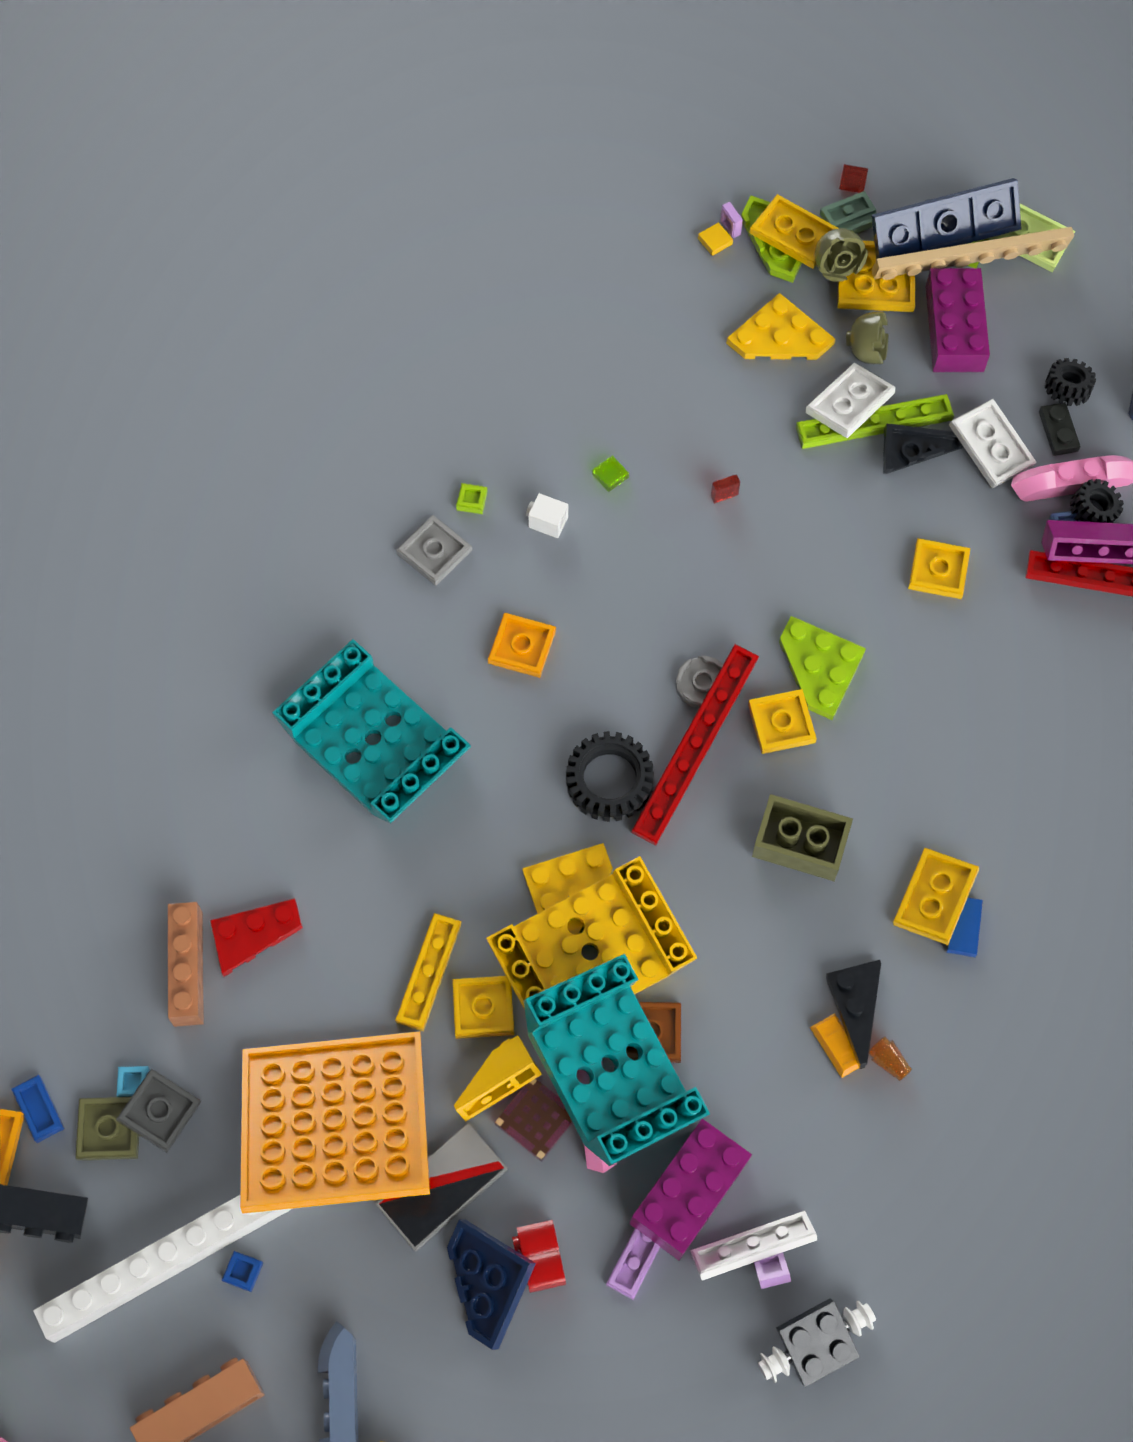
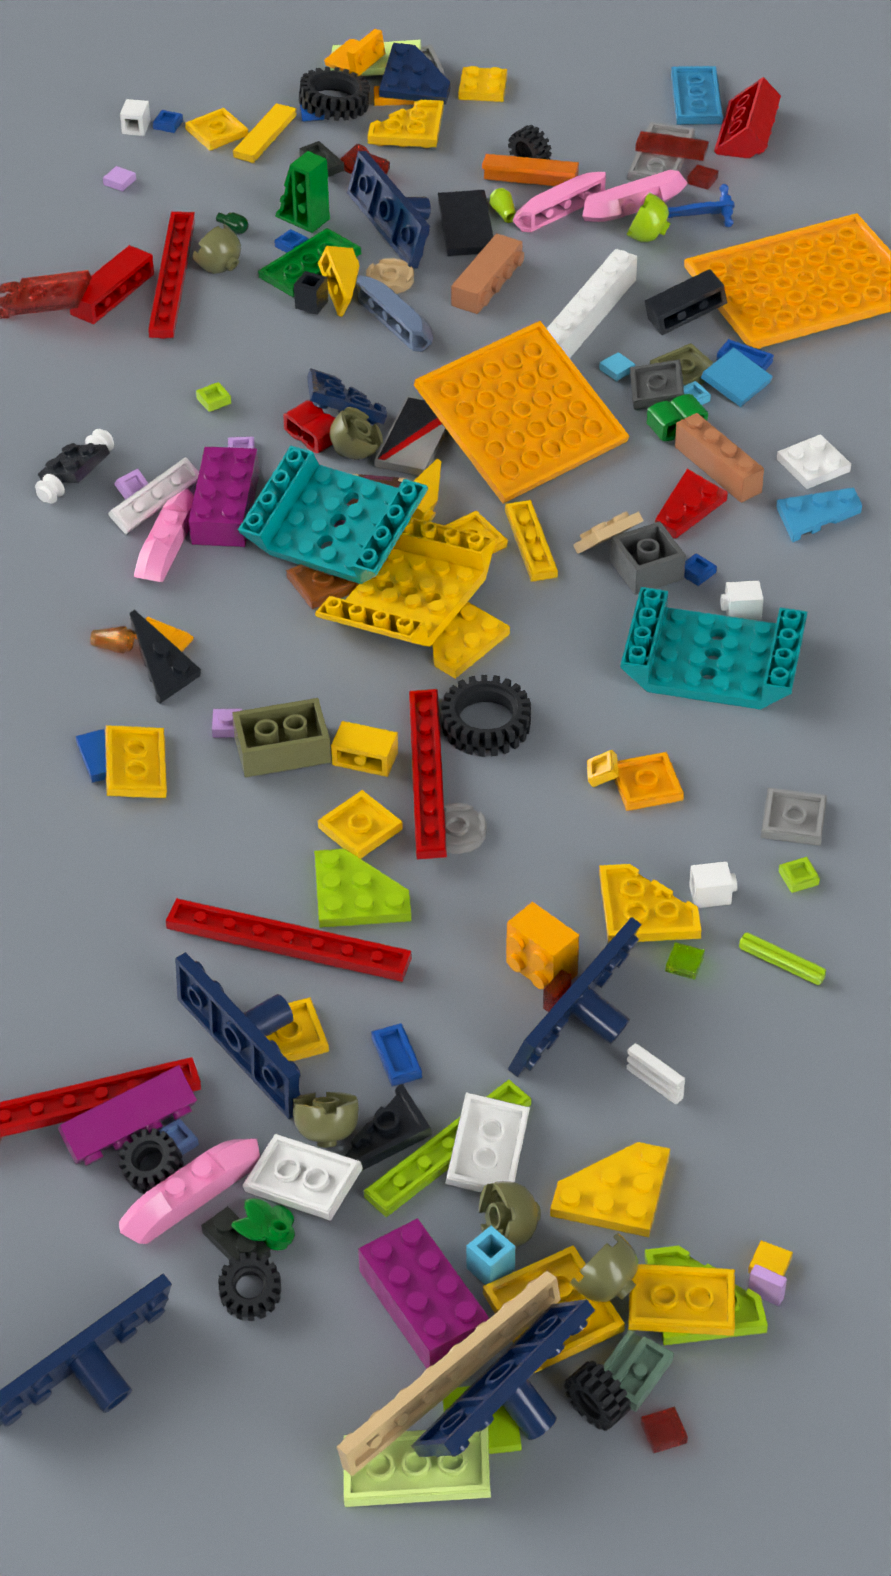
camera: 150 degrees right, 20 degrees down
(74, 1074) = (736, 377): none -> dark azure tile
(97, 920) = (813, 461): none -> white plate
(148, 855) = (814, 510): none -> dark azure wing
(172, 1171) = (616, 366): none -> medium azure tile
(178, 1048) = (665, 414): none -> green brick
(304, 777) = (743, 600): none -> white brick
(308, 847) = (699, 569): none -> blue tile
(351, 865) = (647, 557): none -> dark grey brick
(365, 914) = (605, 530): none -> tan plate
(512, 1198) = (353, 435): none -> olive cylinder
(540, 436) = (782, 958): none -> lime axle
(551, 669) = (602, 768): none -> yellow tile
(612, 526) = (649, 902): none -> yellow plate
(615, 1374) = (213, 397): none -> lime plate
(699, 391) = (656, 1073): none -> white tile
(716, 459) = (582, 1003): none -> dark blue plate
(720, 514) = (540, 946): none -> light orange brick
(733, 796) = (364, 748): none -> yellow brick
(771, 1175) = (165, 538): none -> bright pink brick
(832, 900) = (223, 723): none -> lavender plate
(869, 509) = (396, 1054): none -> blue tile
(887, 194) = (597, 1395): none -> black tyre
(901, 316) = (490, 1256): none -> medium azure brick
(901, 644) = (289, 939): none -> red plate
(955, 468) = (326, 1117): none -> olive cylinder
(982, 563) = (242, 1033): none -> dark blue plate
(1036, 425) = (266, 1224): none -> green plate

